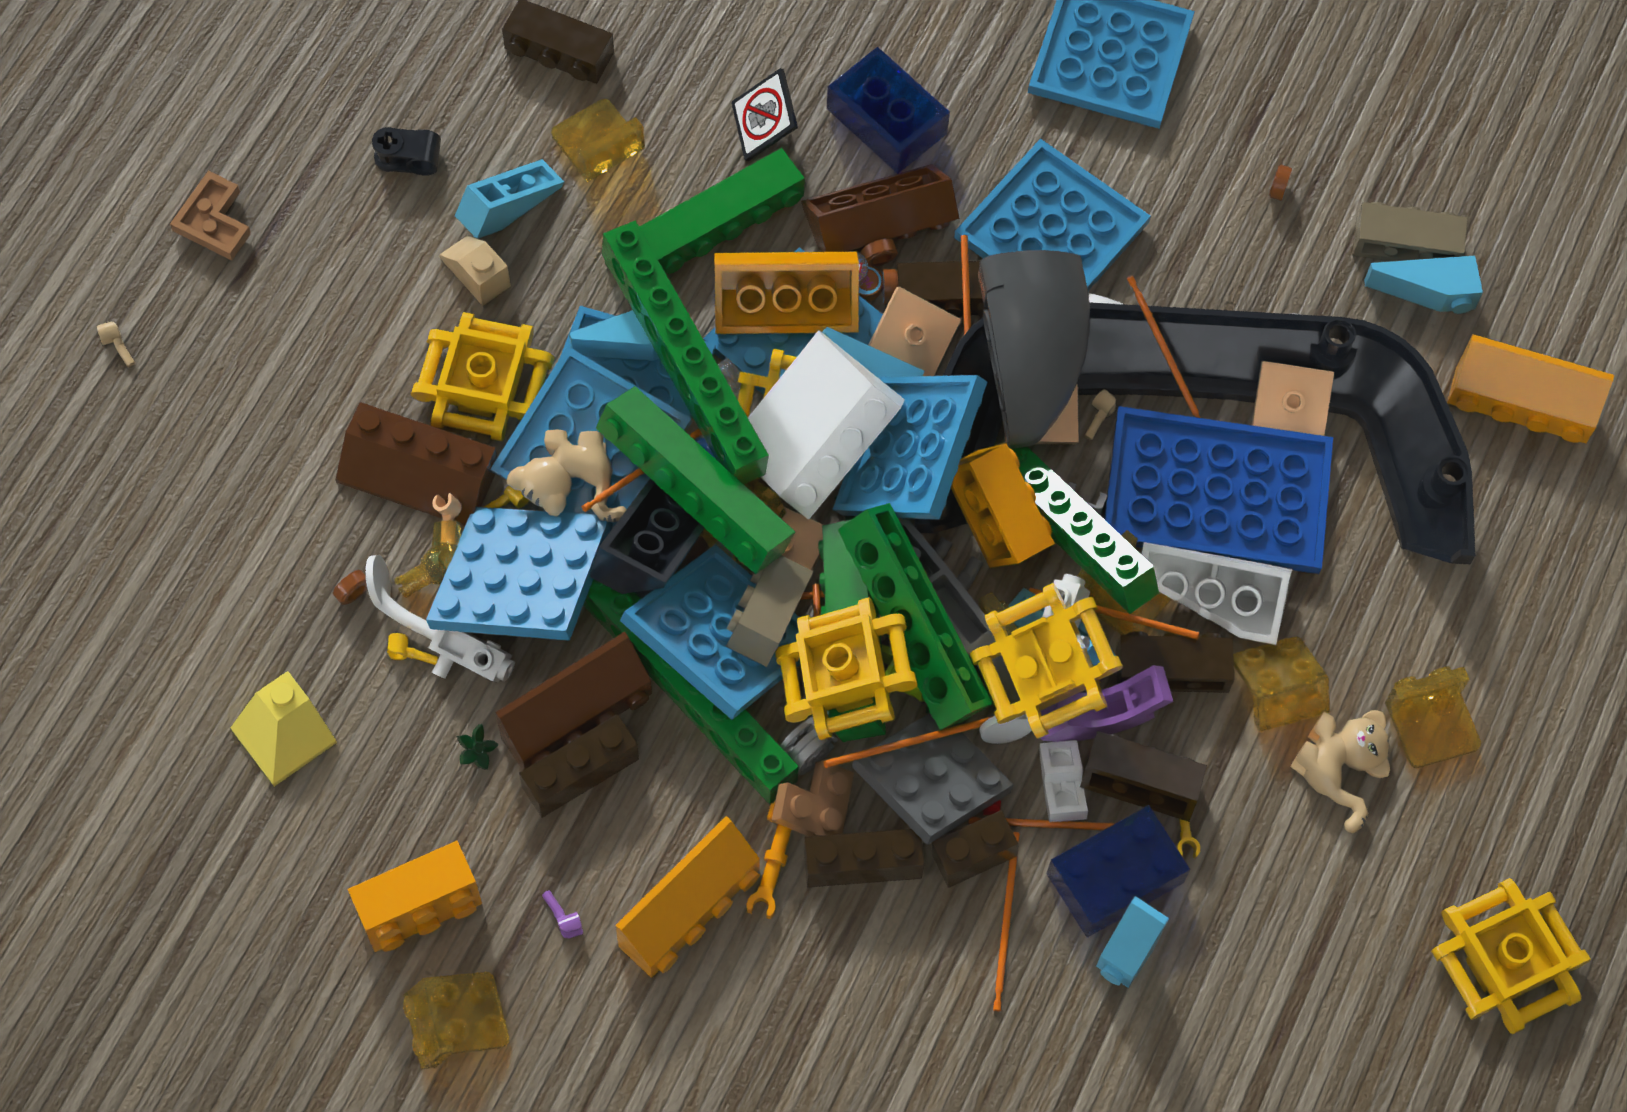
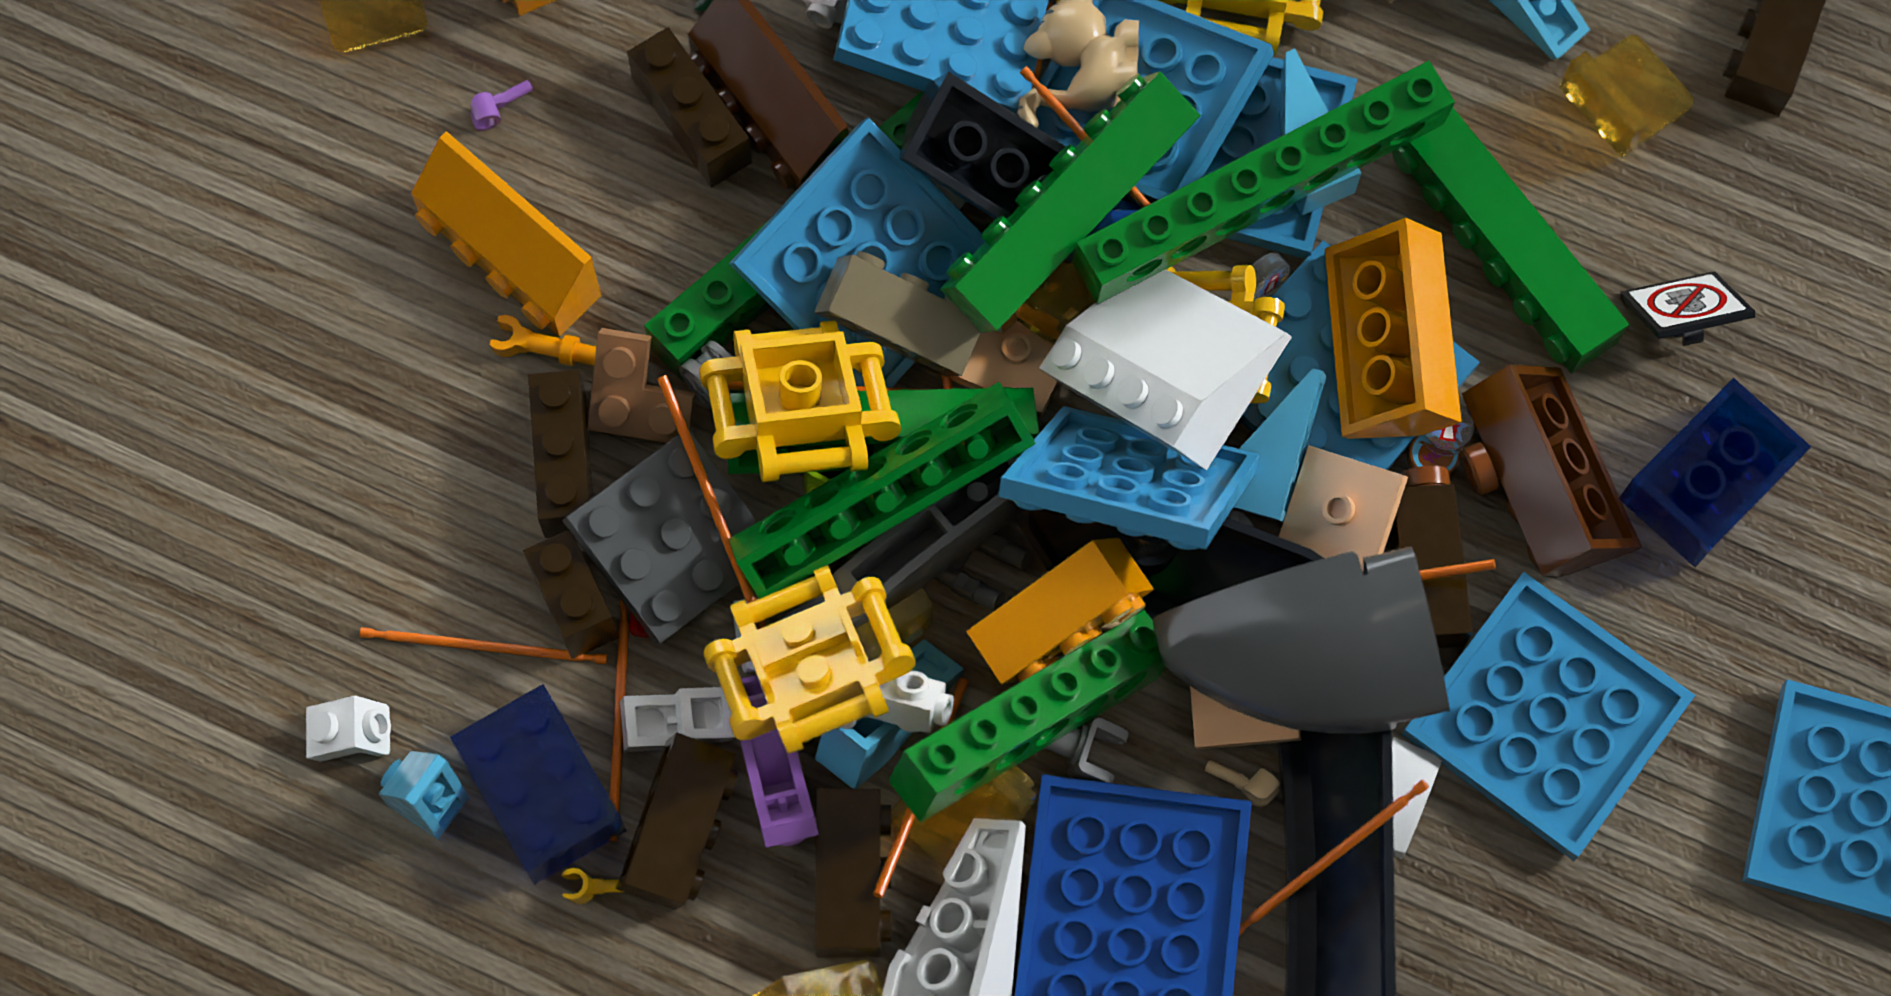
camera: 90 degrees right, 5 degrees up
(1076, 1013) = (347, 728): none -> white bracket

